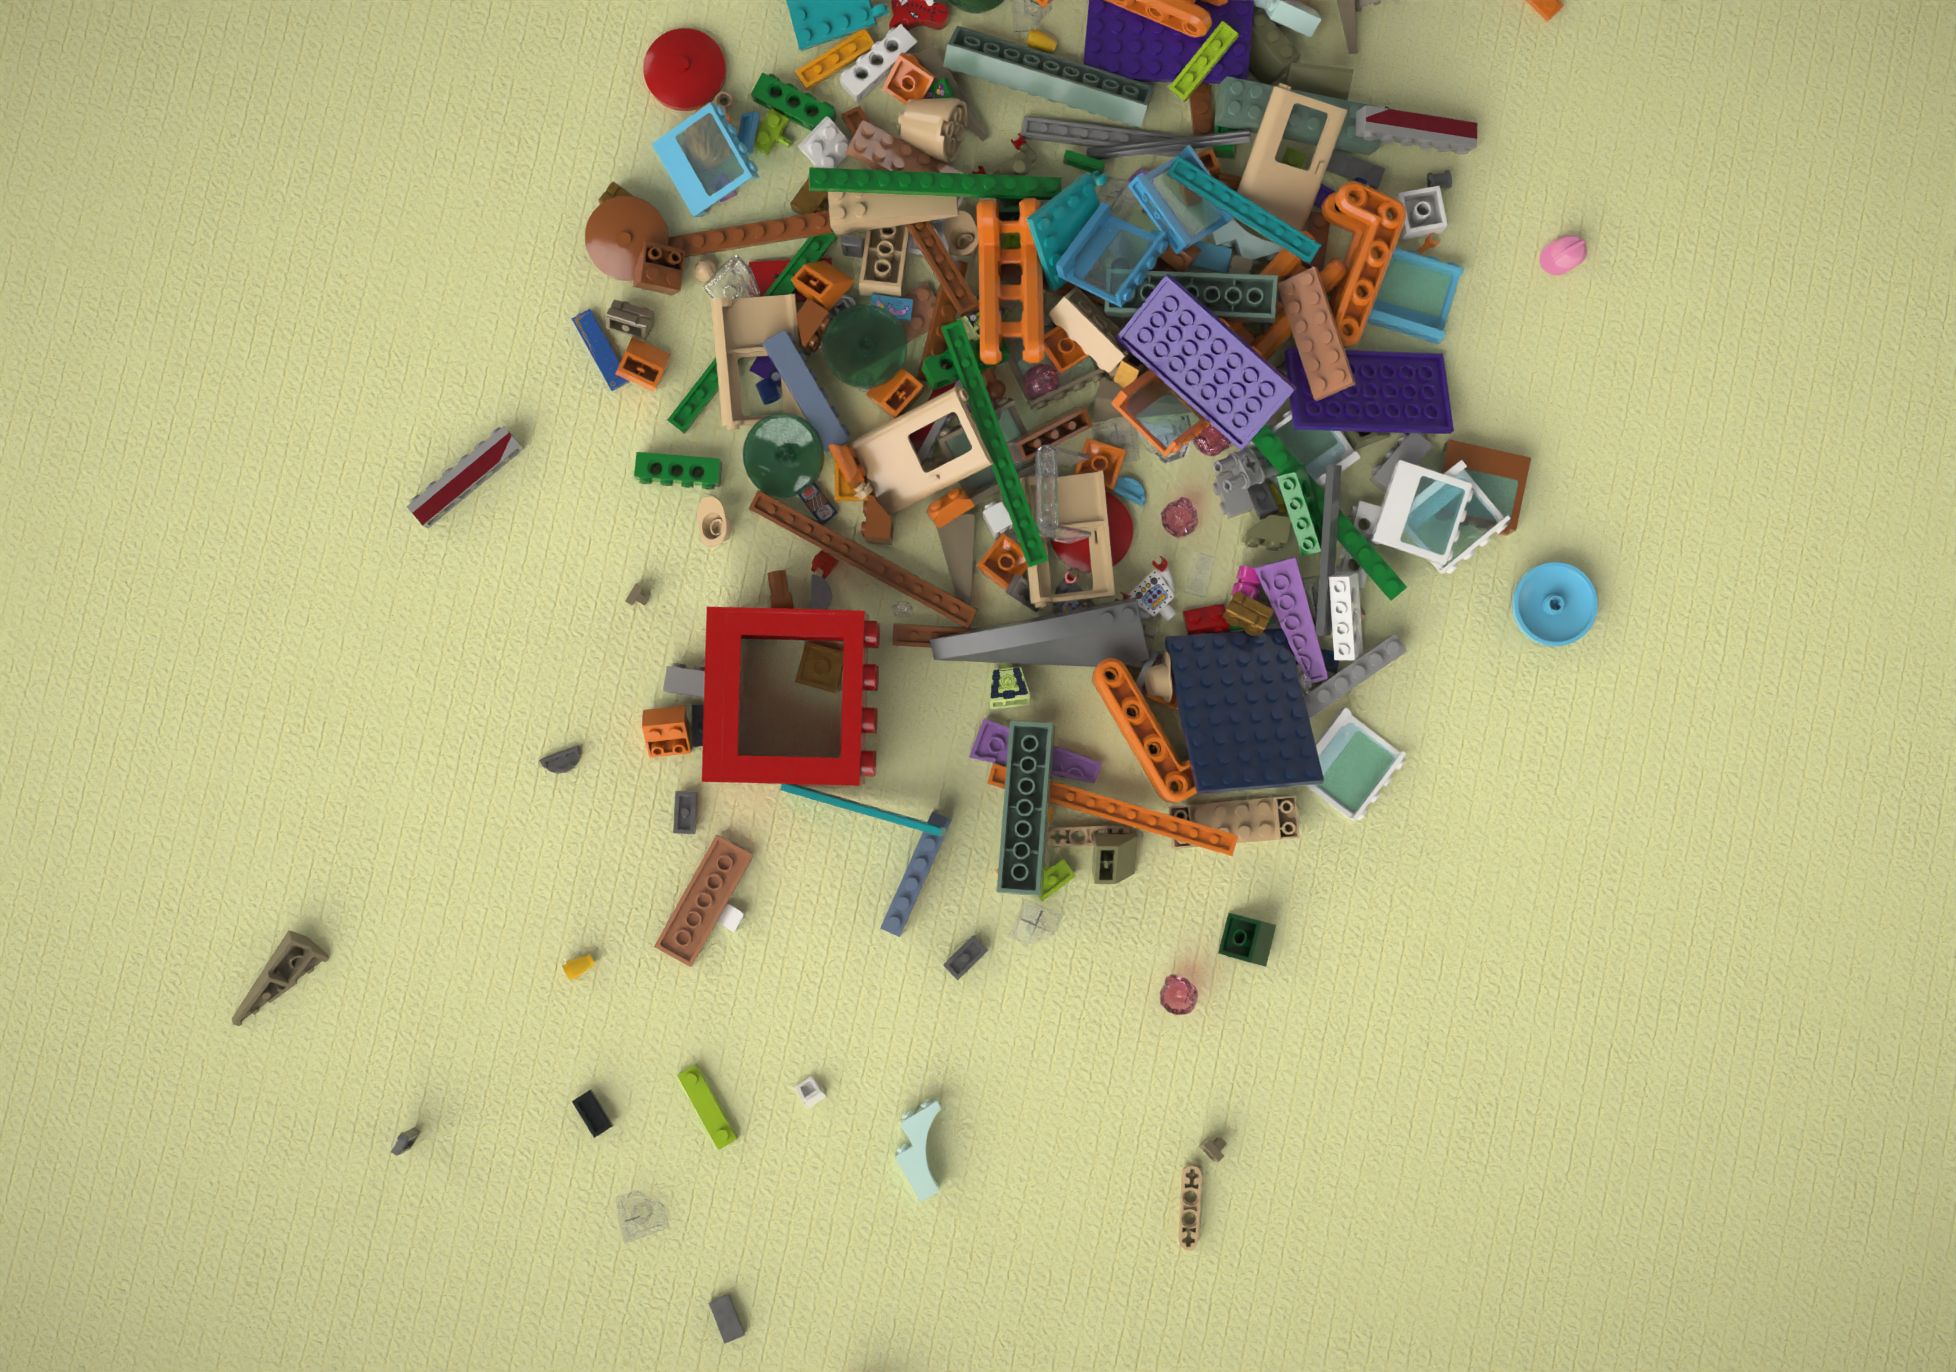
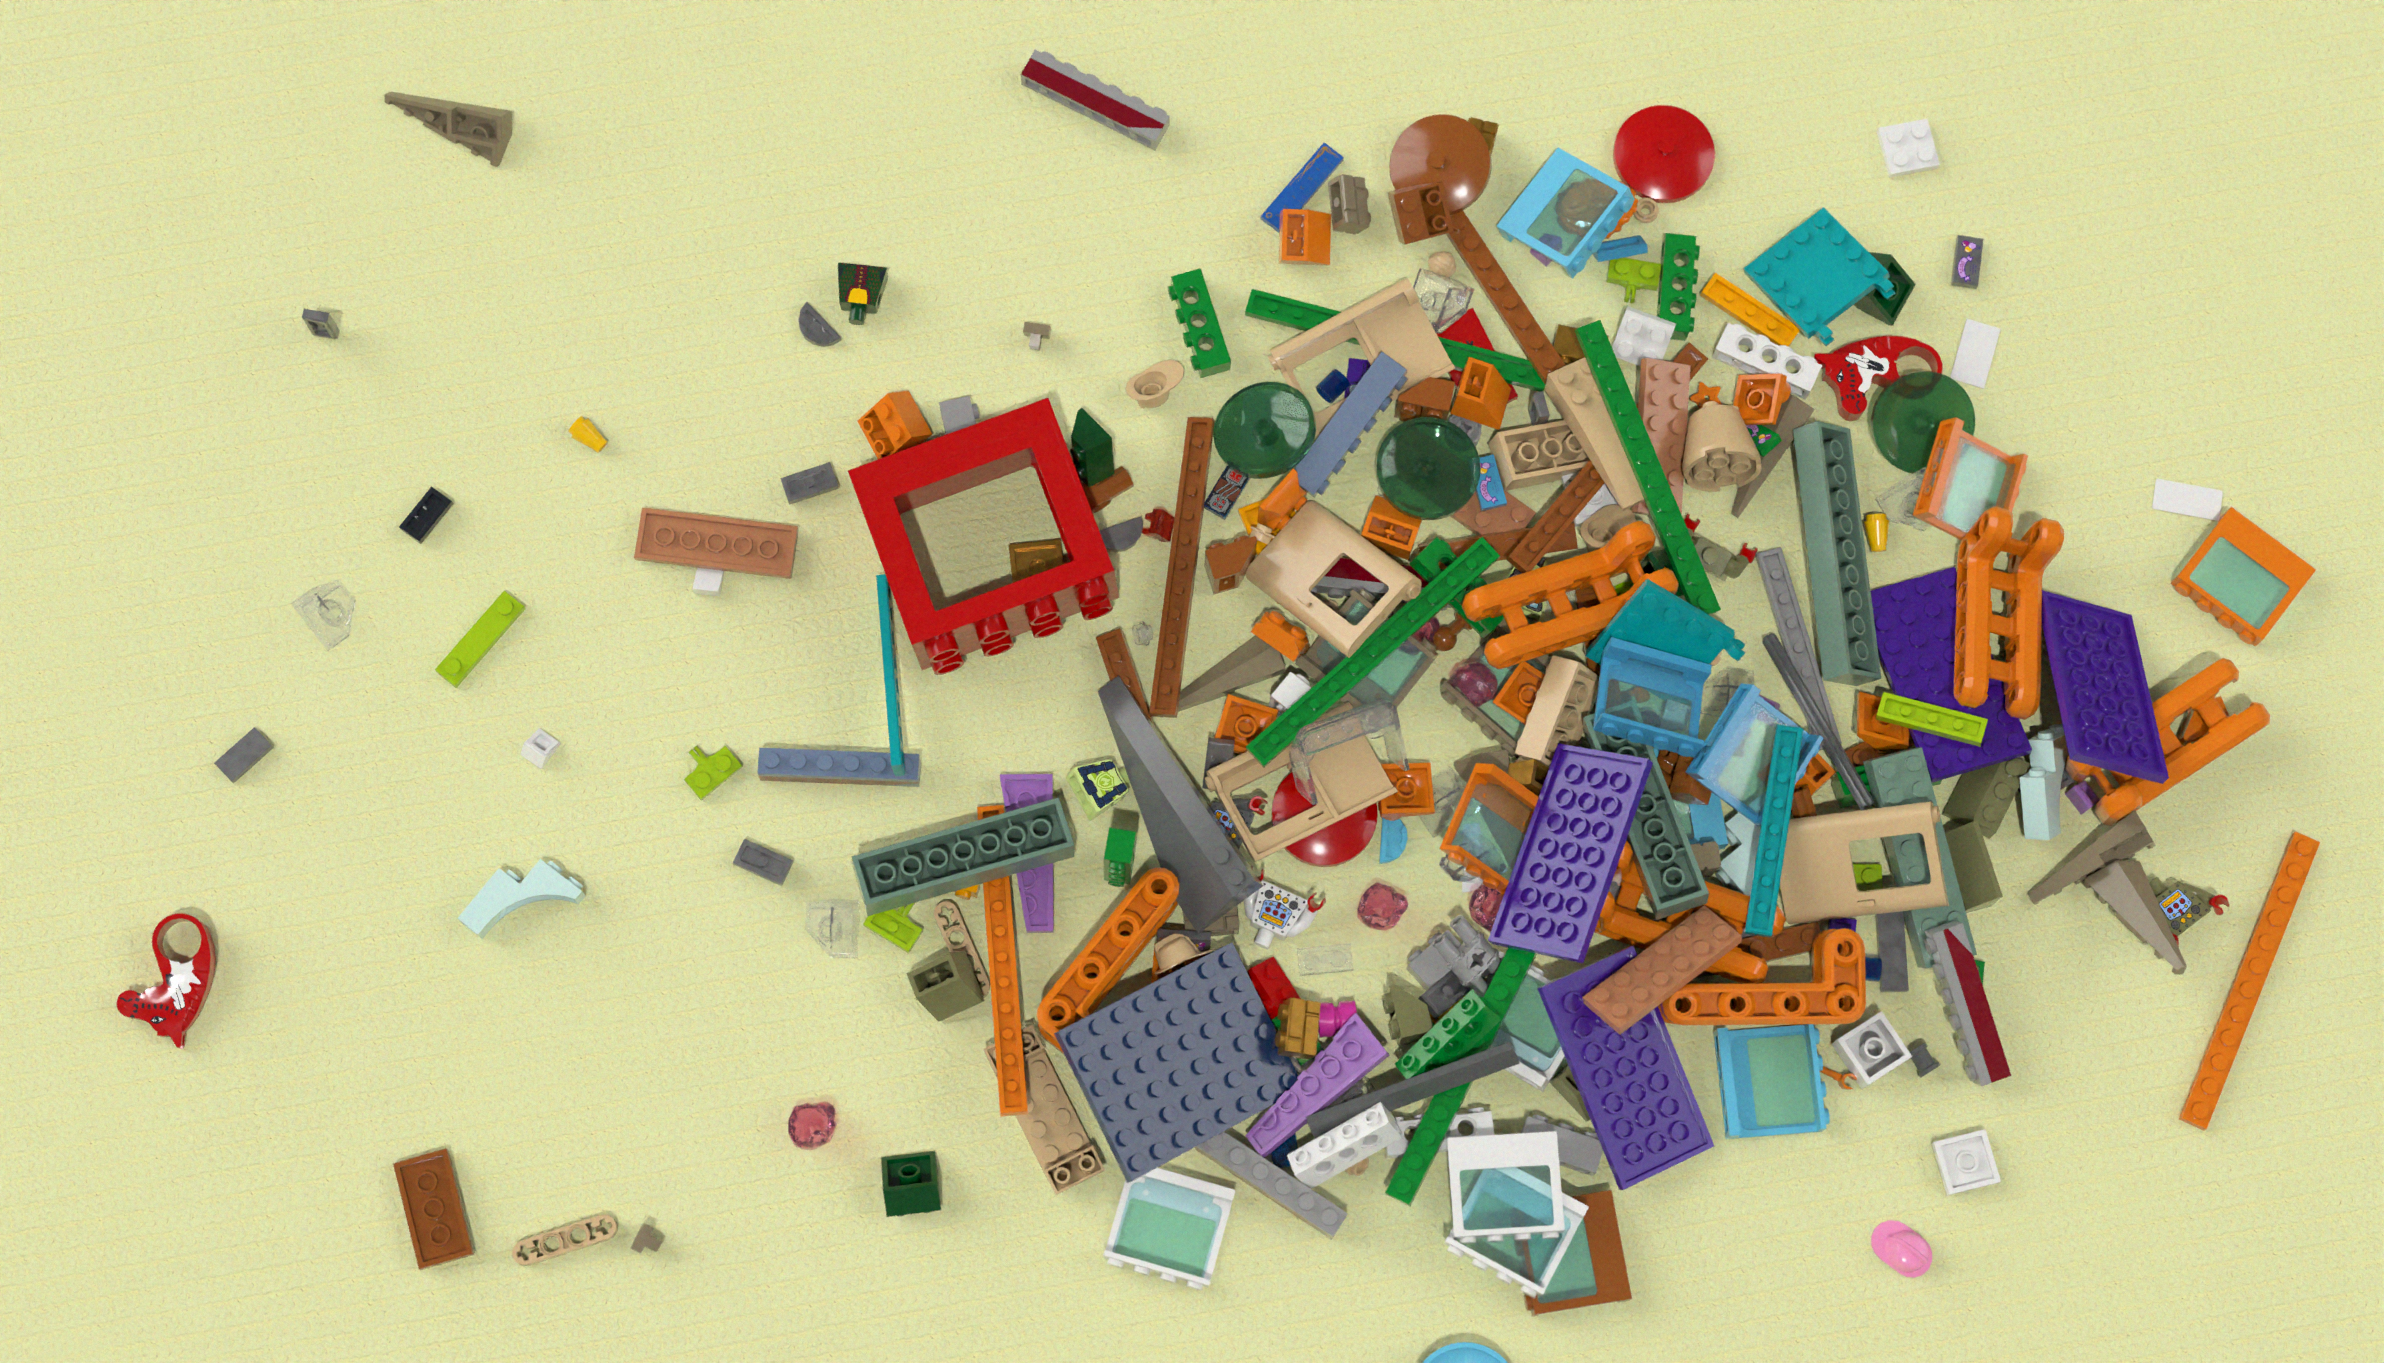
camera: 65 degrees right, 10 degrees down
(546, 715) = (861, 289): none -> dark green torso
(749, 590) = (1091, 450): none -> dark green slope
(879, 970) = (711, 771): none -> lime plate
(893, 116) = (1703, 390): none -> orange plate
(1049, 433) = (1417, 717): dark orange brick -> none
(1074, 693) = (1119, 856): none -> green brick
(1083, 162) = (1755, 635): green tile -> none
(1130, 1296) = (433, 1209): none -> dark orange plate
(1192, 108) = (1878, 733): none -> orange slope
(1304, 682) = (1243, 1127): clear plate -> none
(1522, 182) = (1966, 1162): none -> white plate

